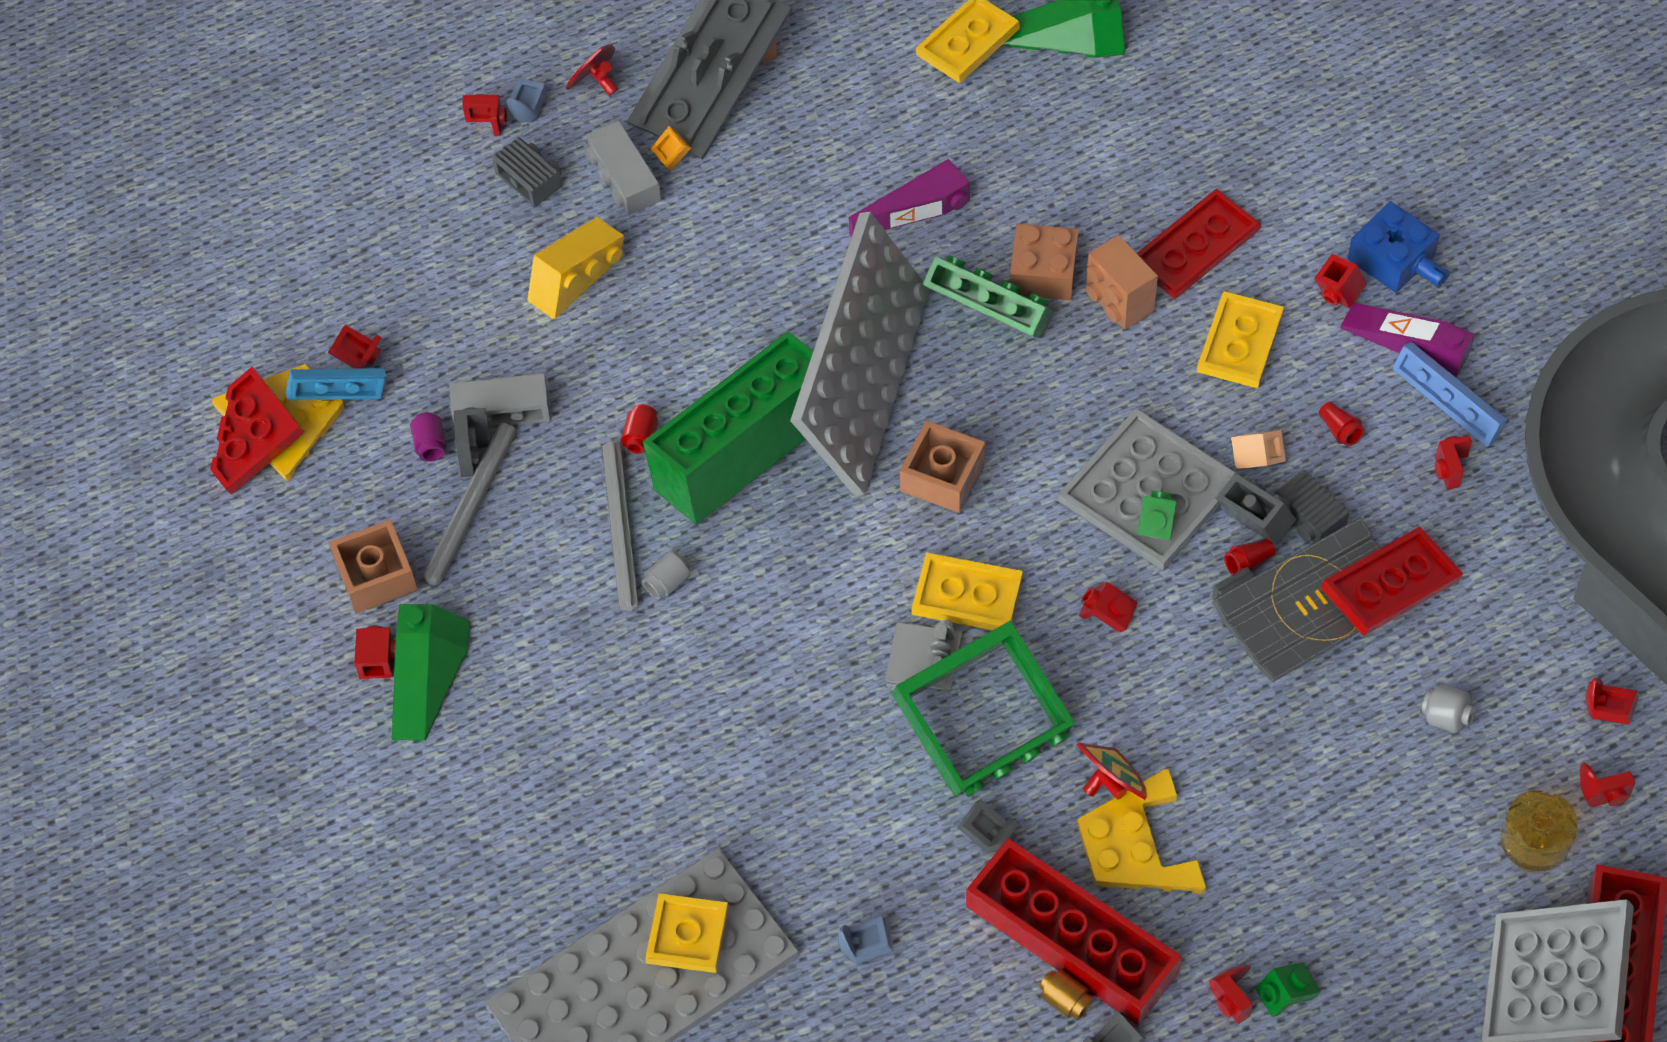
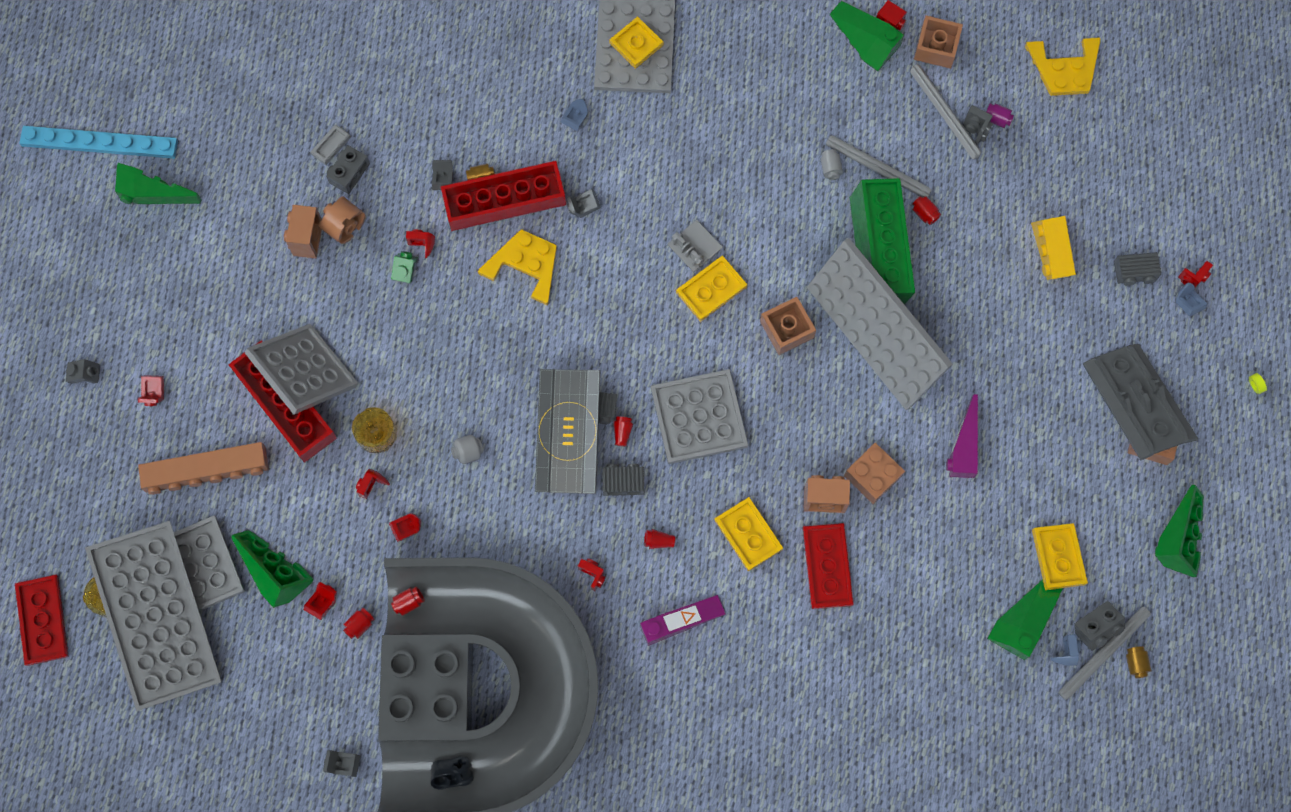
camera: 125 degrees right, 15 degrees up
(251, 431) = (1063, 40): red plate -> none
(335, 384) = (1060, 88): dark azure tile -> none
(355, 348) = (1081, 116): red bracket -> none
(506, 399) = (994, 159): light grey brick -> none
(599, 68) = (1178, 347): red shield -> none
(622, 168) = (1103, 315): light grey brick -> none
(670, 148) = (1099, 348): light orange tile -> none
(989, 297) = (872, 425): green brick -> none
(1005, 636) = (609, 232): green window -> none
(1109, 606) = (650, 344): red bracket -> none
(1112, 772) = (562, 274): red shield -> none
(1157, 515) = (676, 399): green bracket -> none
(1256, 508) = (641, 448): dark grey brick -> none
(1258, 449) = (677, 486): light nougat panel -> none
(1340, 281) = (739, 609): red brick -> none
(1391, 581) = (548, 476): red plate -> none
(1397, 248) = (730, 670): blue brick -> none
(1449, 394) = (638, 607): medium blue plate -> none

